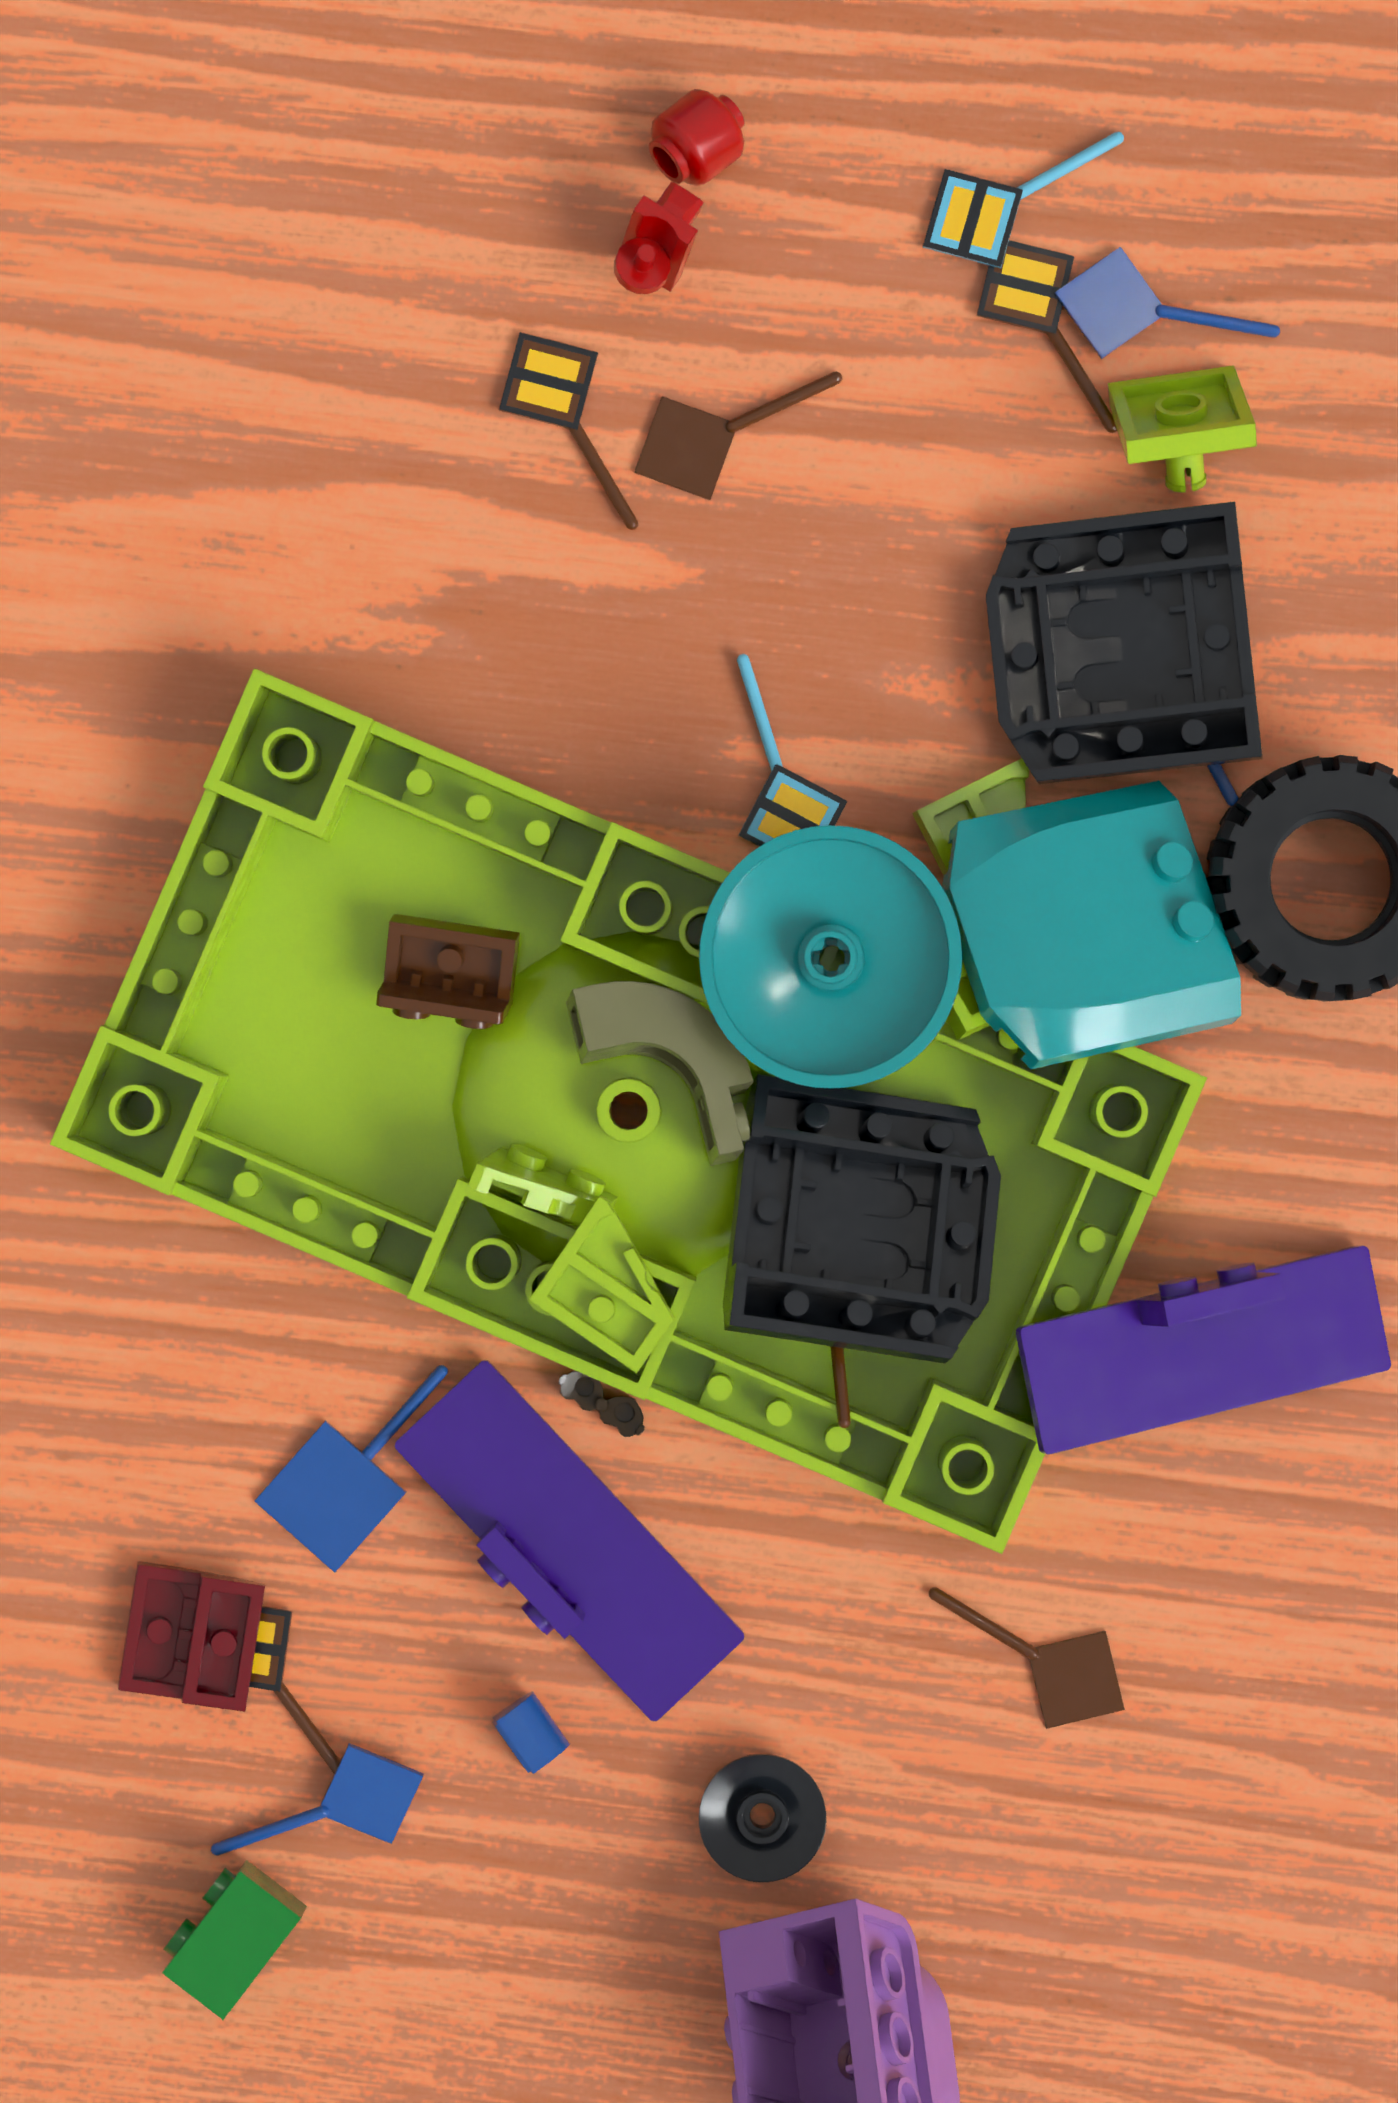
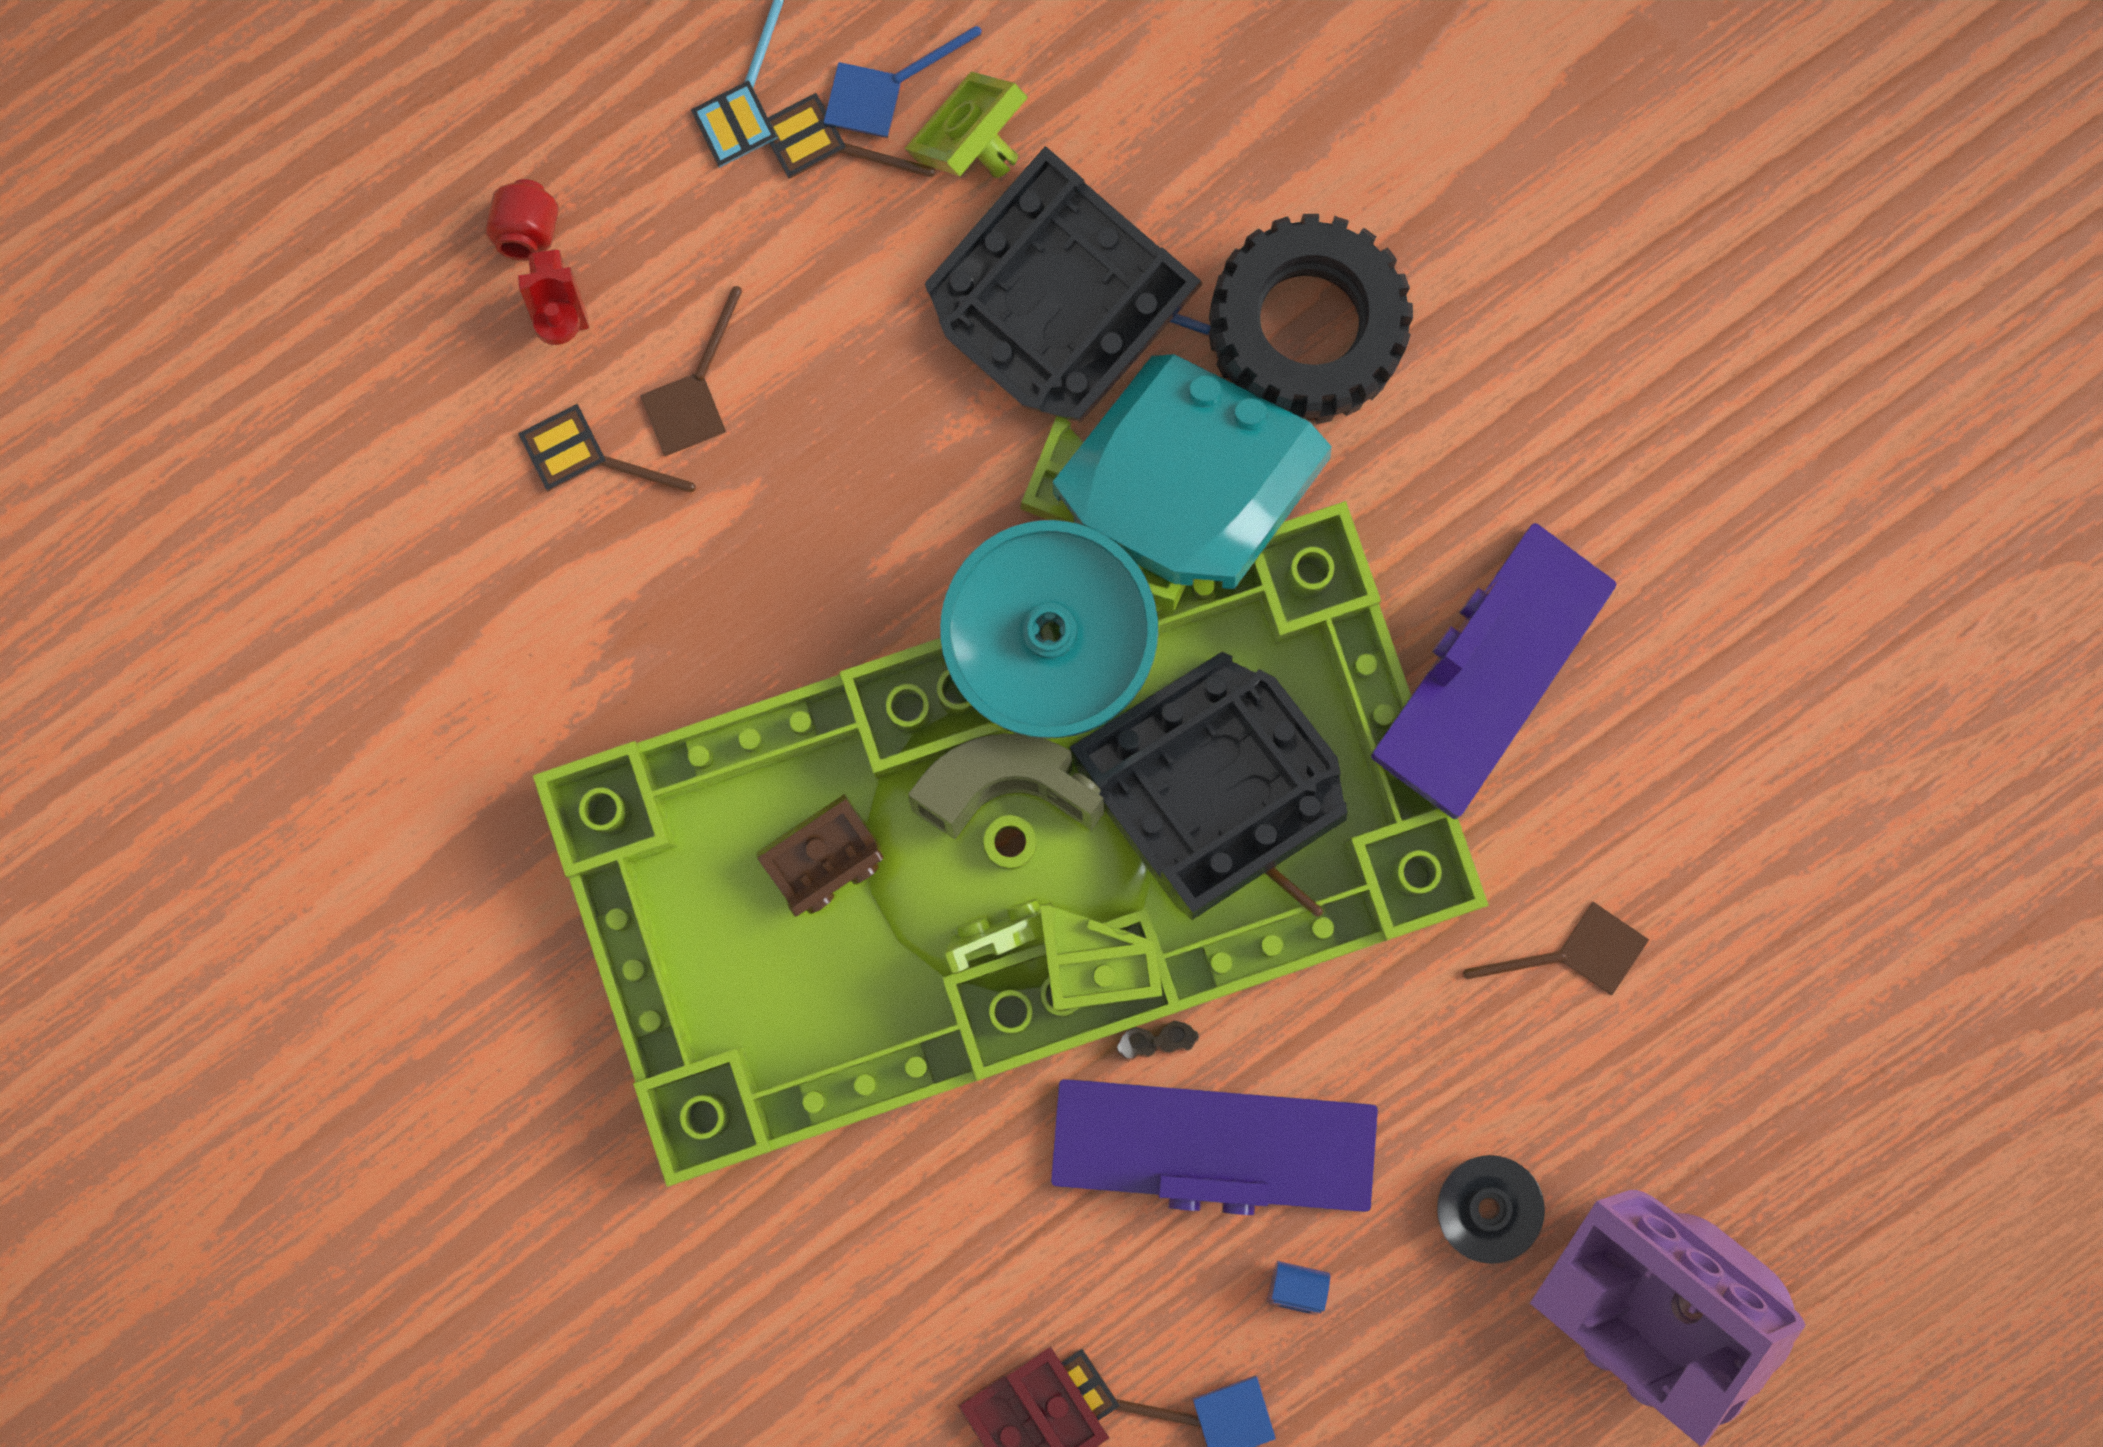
camera: 45 degrees left, 5 degrees down
(333, 1491) = (1041, 1248): blue piece -> none
(786, 799) = (932, 567): piece -> none

